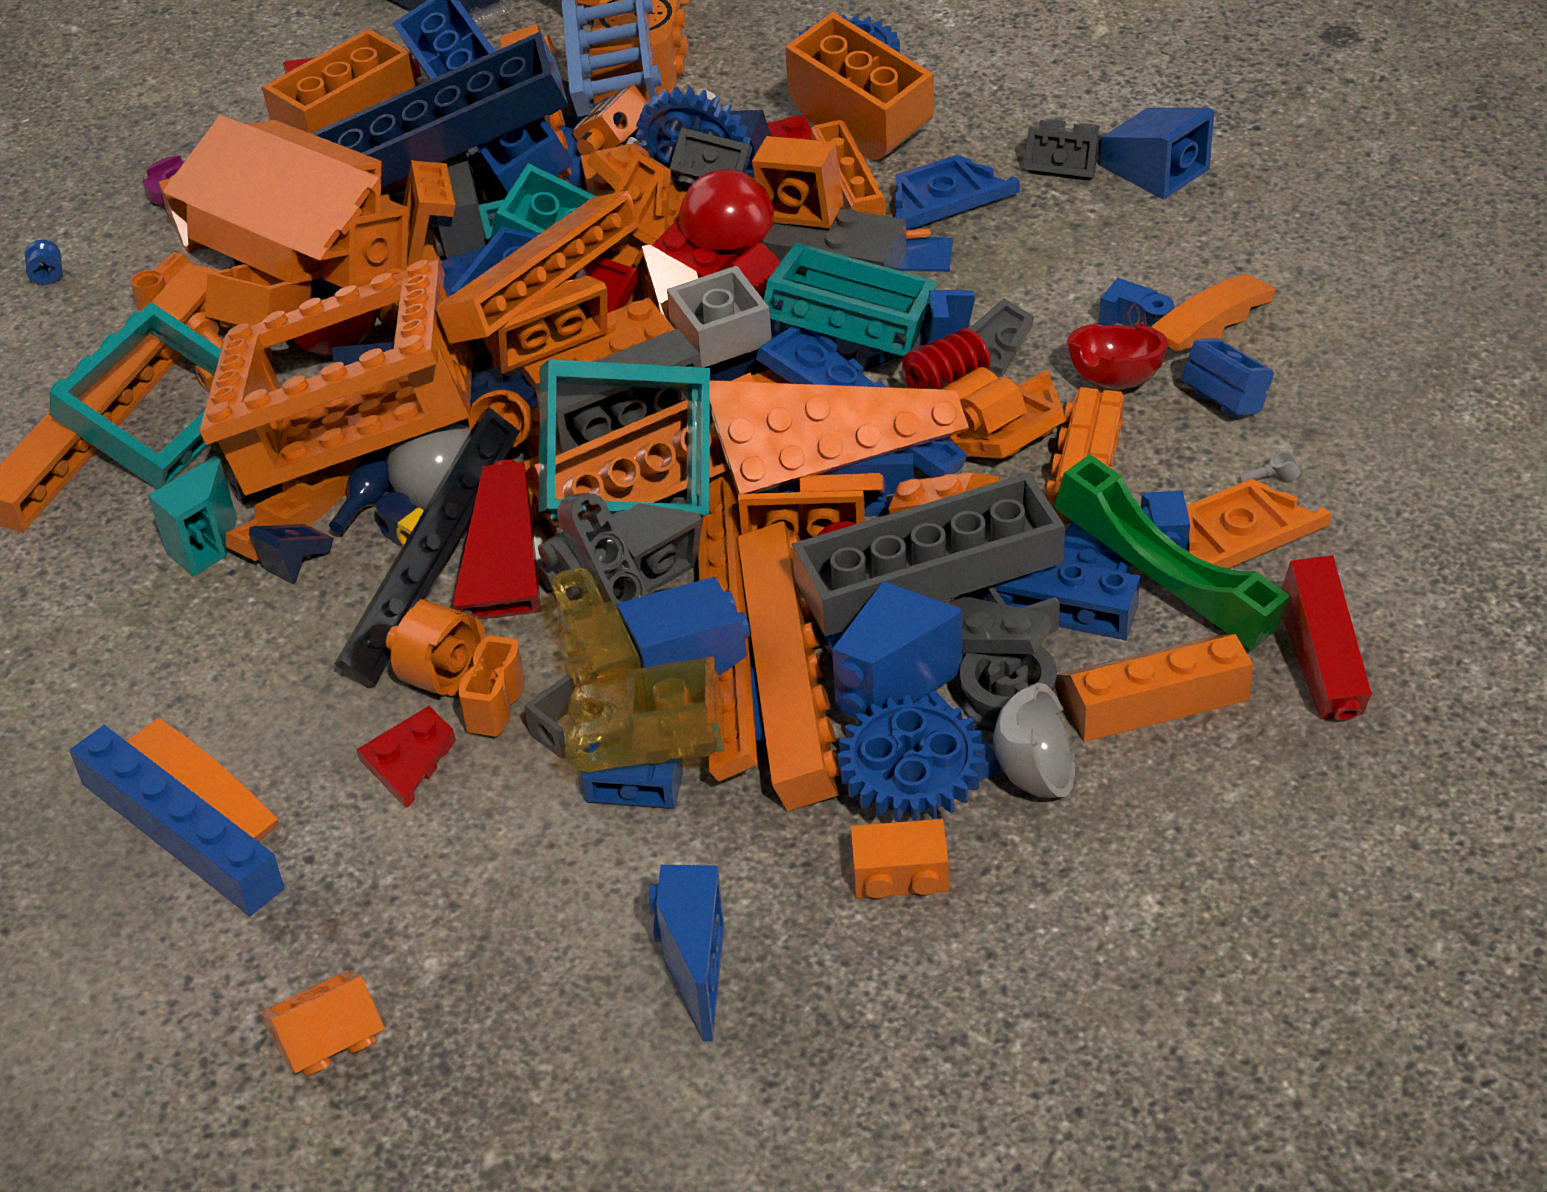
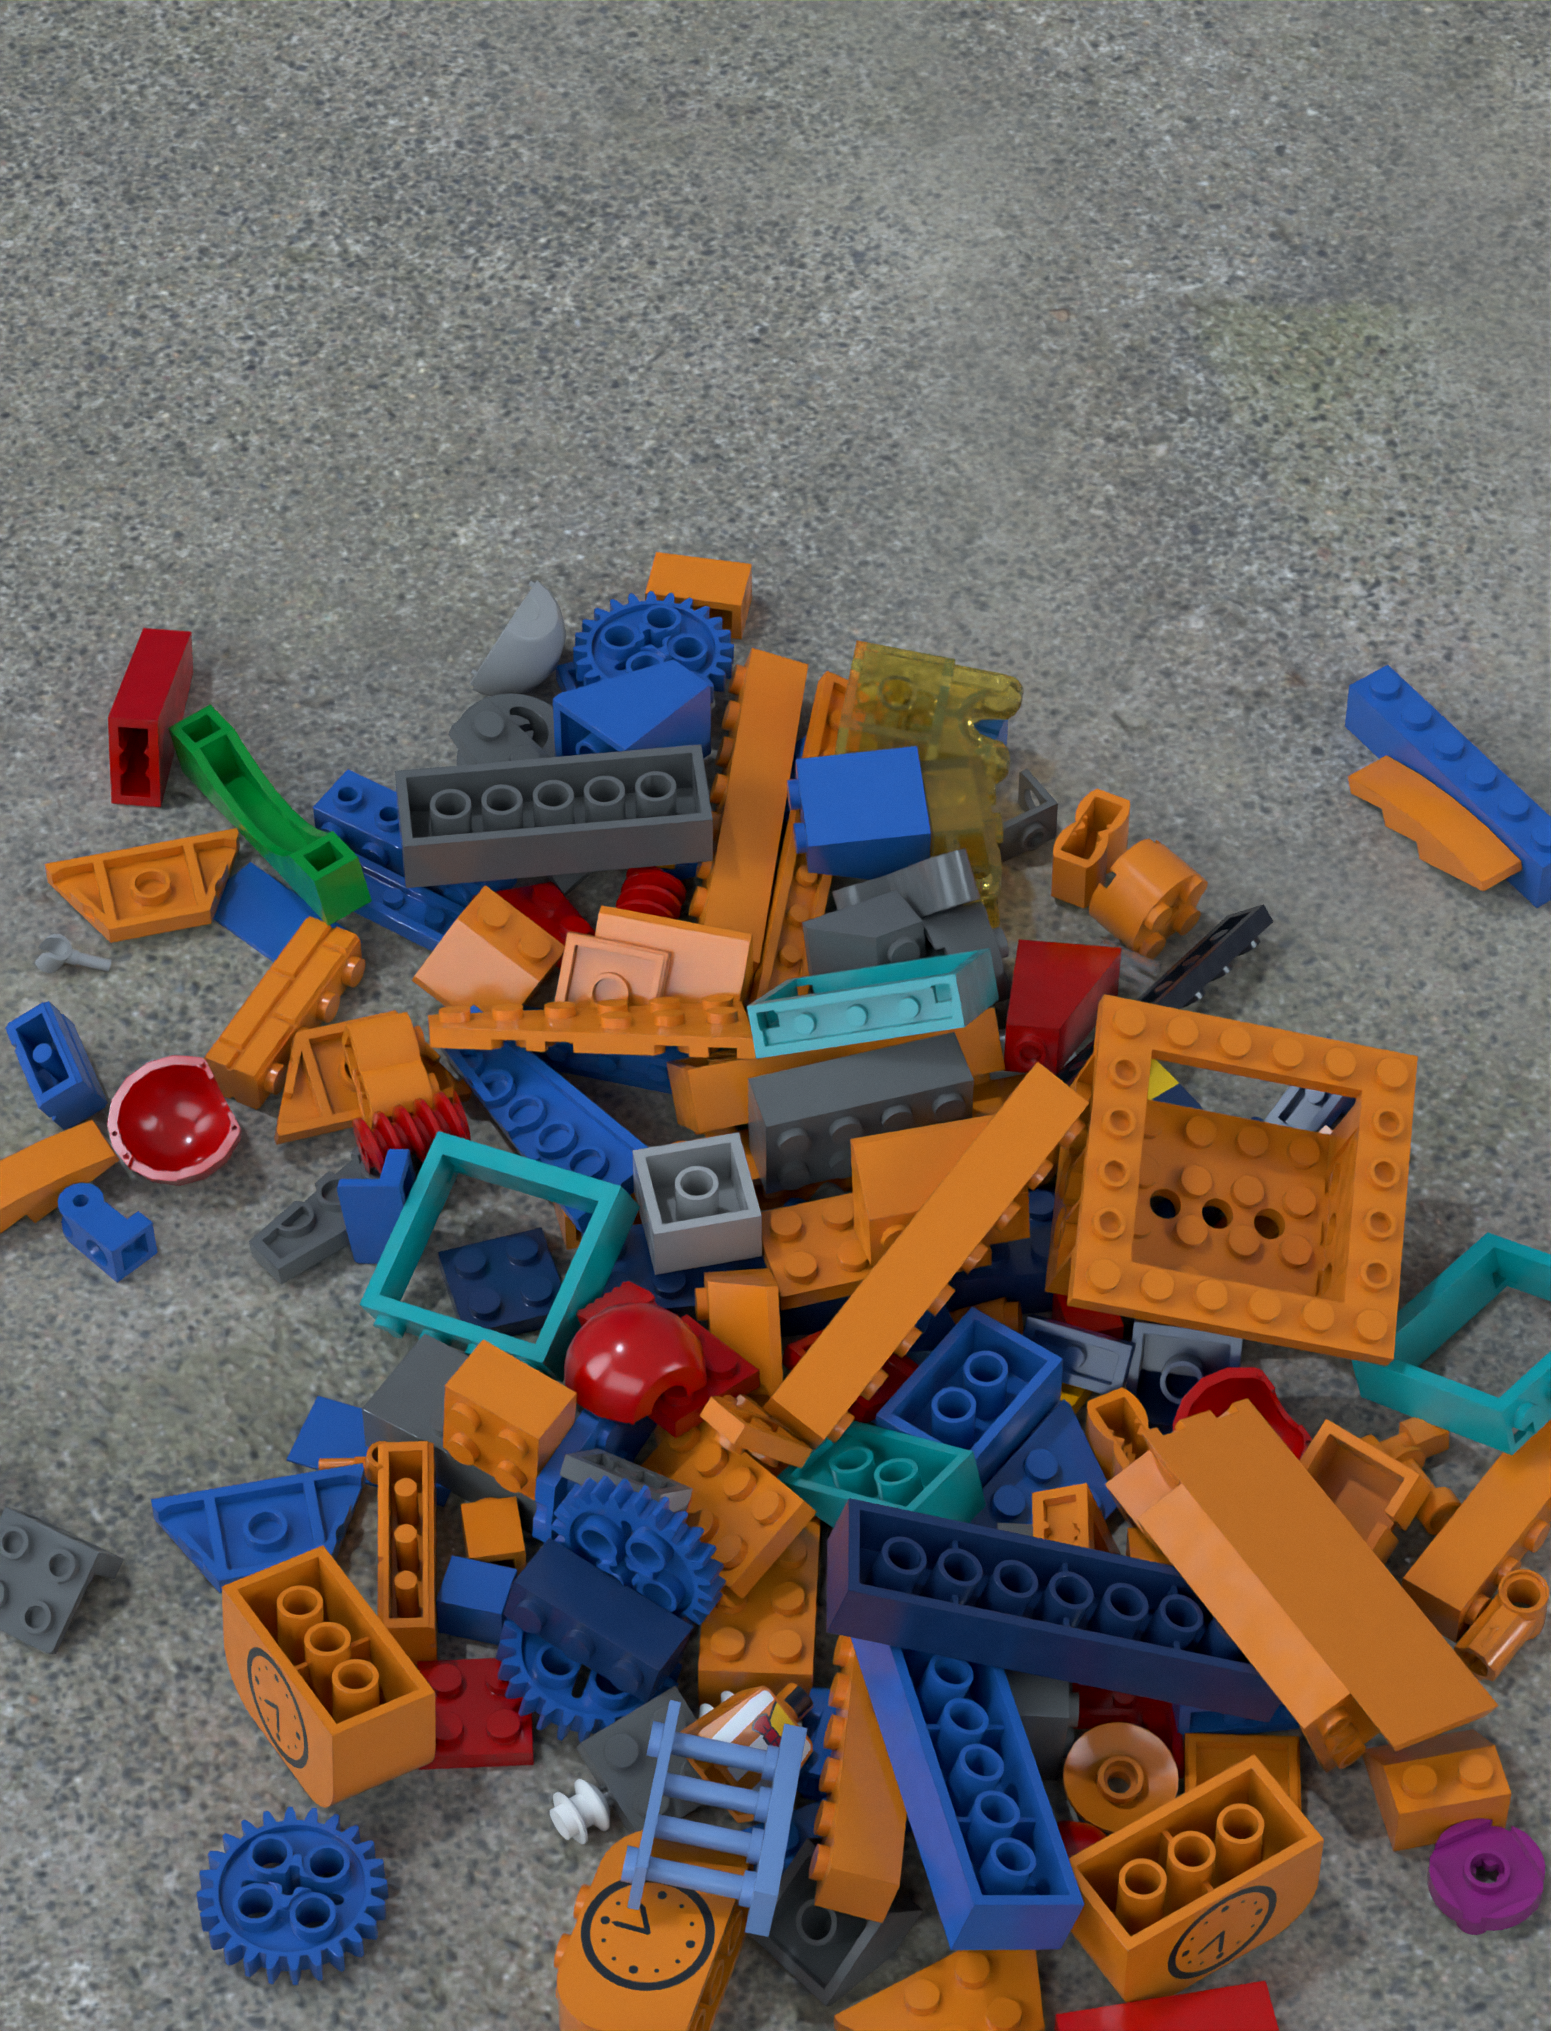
camera: 170 degrees left, 5 degrees up
(195, 516) = (1448, 1136): teal slope -> none
(323, 1022) = (1312, 566): orange slope -> none
(408, 753) = (1202, 825): red wing -> none
(691, 934) = (930, 536): blue slope -> none
(1157, 686) = (351, 718): orange slope -> none
(1169, 514) = (243, 892): blue window -> none

